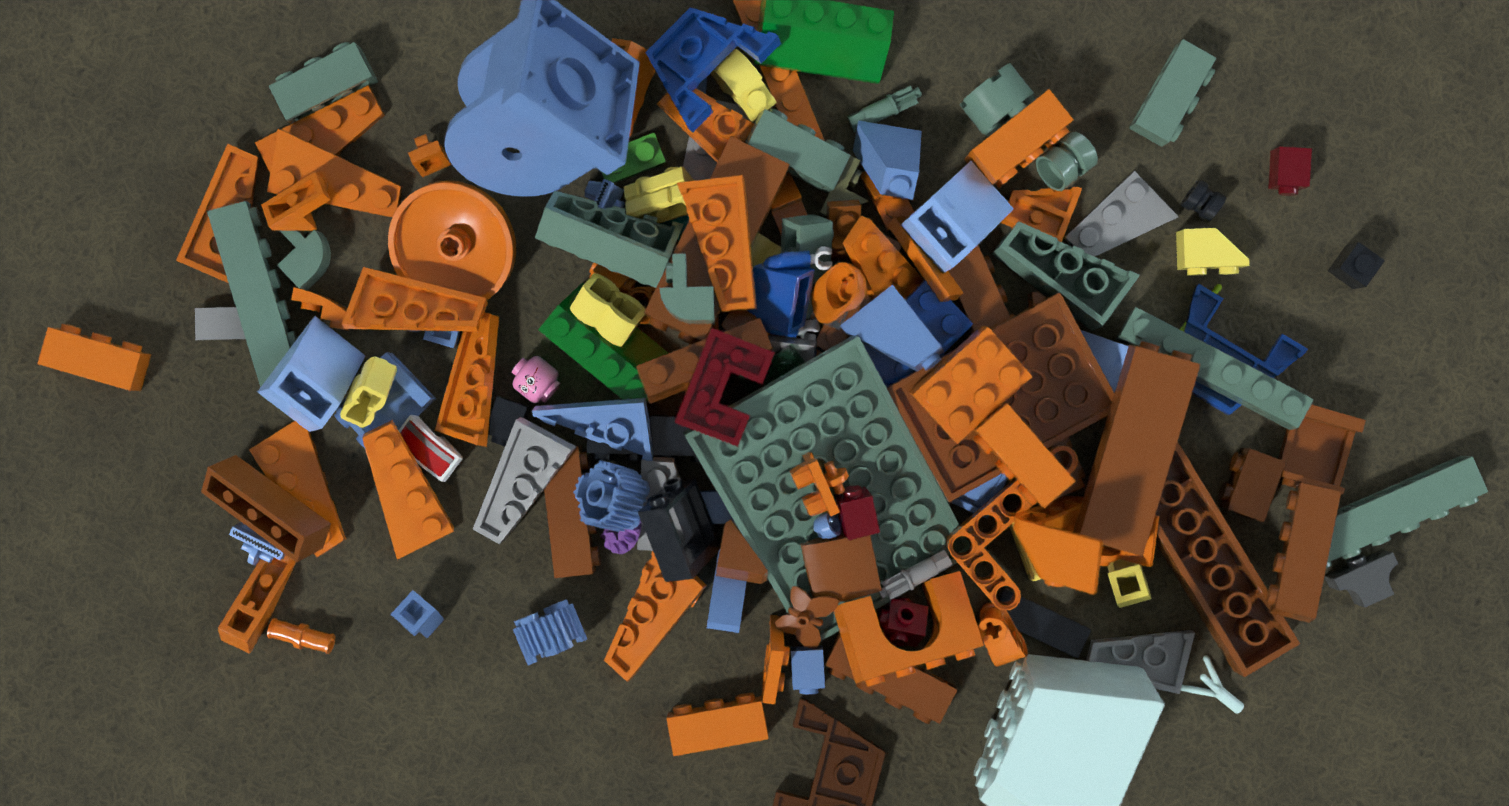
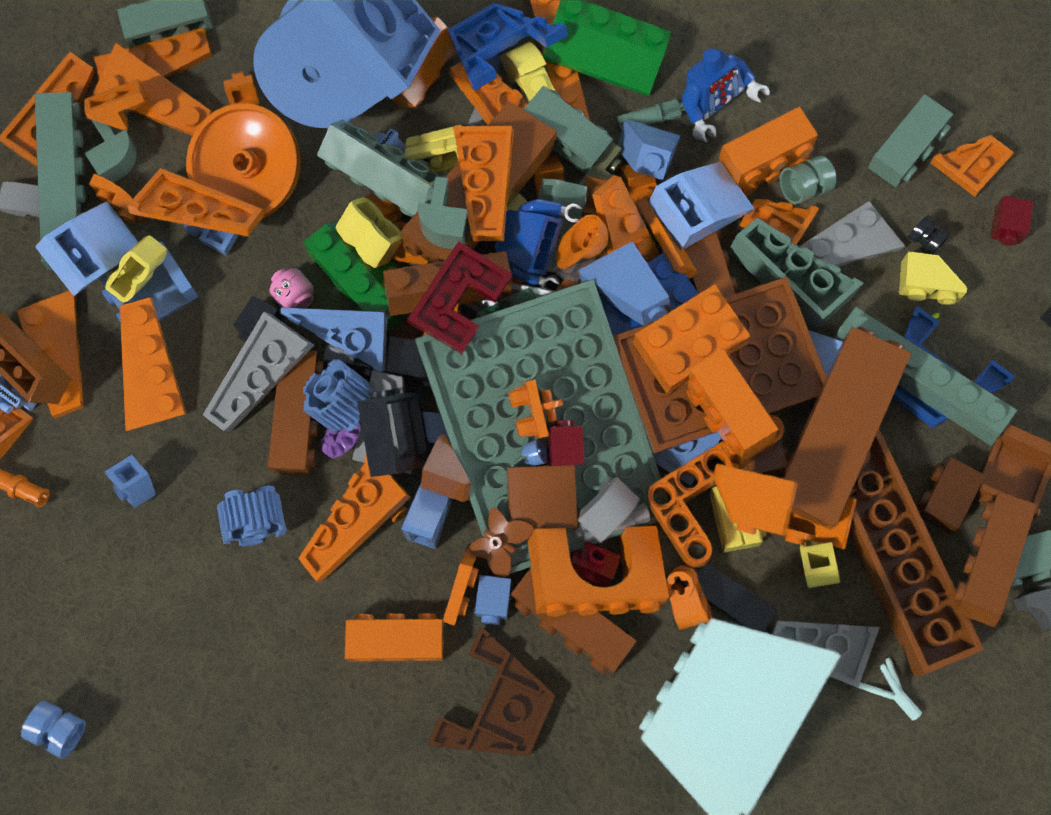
camera: 15 degrees right, 15 degrees down
(430, 451) = (180, 336): slope -> none
(470, 385) = (229, 289): orange wing -> none
(641, 156) = (418, 120): bright green plate -> none
(912, 571) = (608, 508): none -> light grey brick
(948, 67) = (713, 85): none -> blue torso
(997, 100) = (749, 112): sand green brick -> none
(1244, 106) = (974, 163): none -> orange wing

